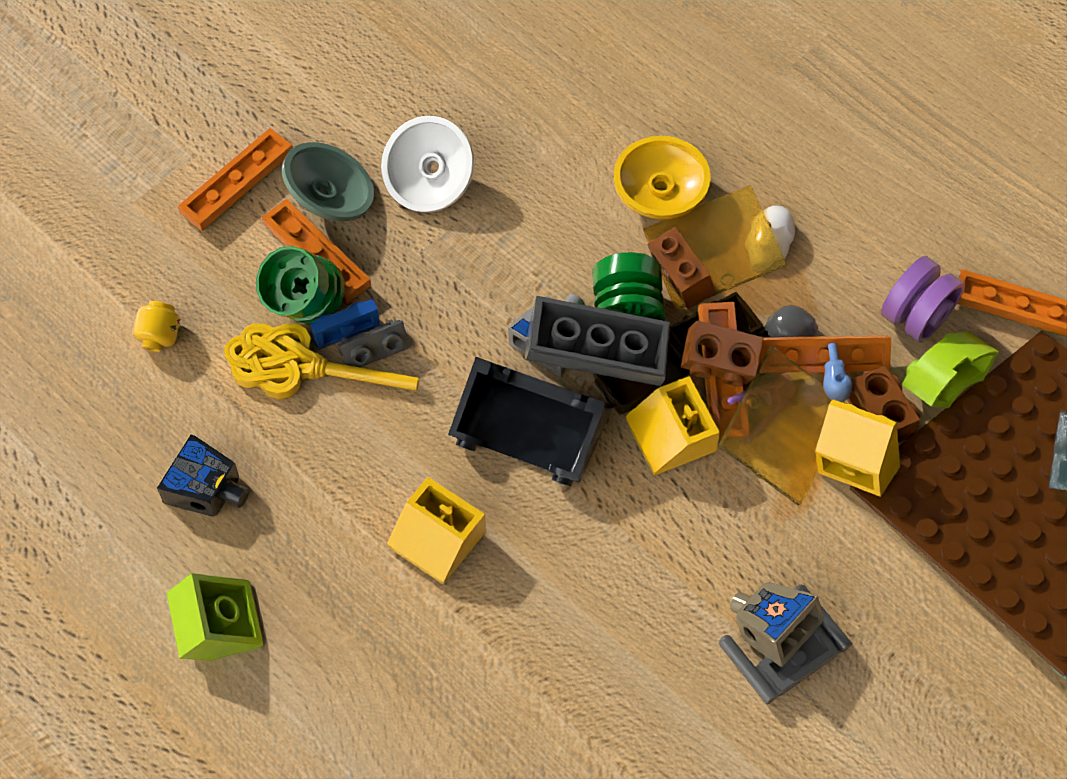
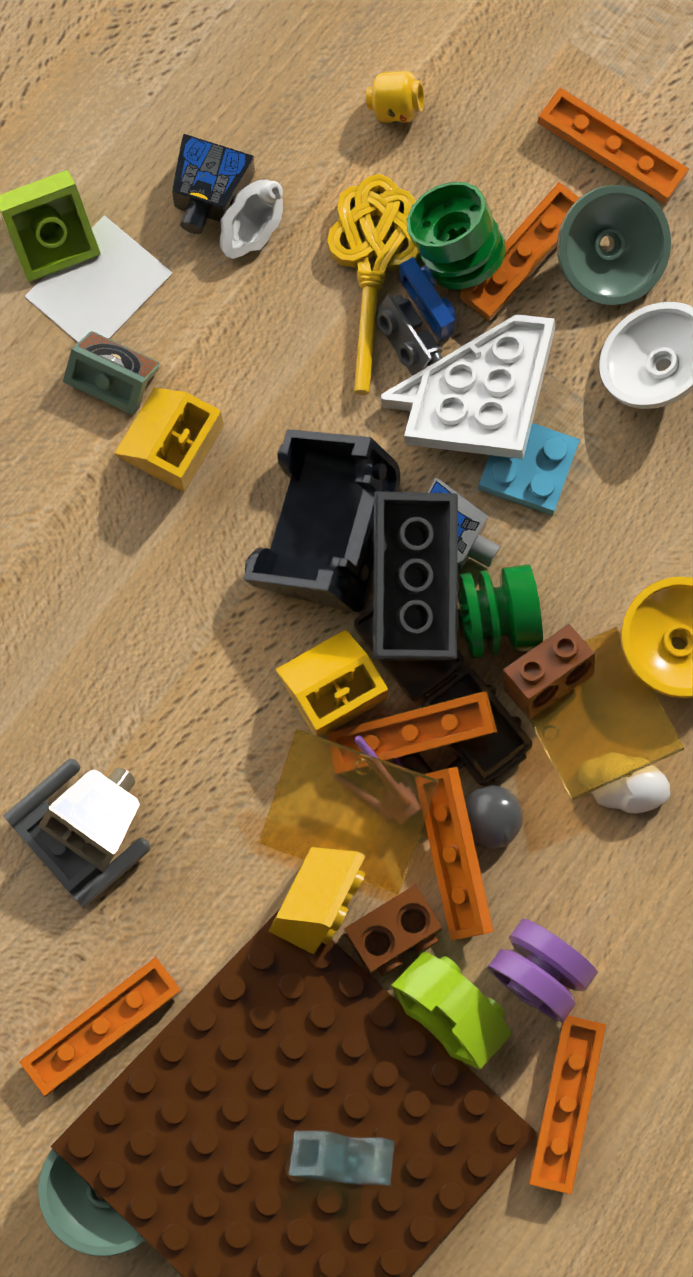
camera: 80 degrees right, 15 degrees up
(244, 448) = (251, 218): none -> white arm
(284, 586) = (103, 289): none -> white sticker
(366, 578) = (109, 371): none -> sand green panel
(436, 292) = (480, 393): none -> white wing
(499, 272) = (537, 477): none -> medium azure plate
(722, 344) = (428, 722): dark orange brick -> none
(836, 382) = (411, 867): medium blue piece -> none
(955, 639) = (100, 1026): none -> orange plate

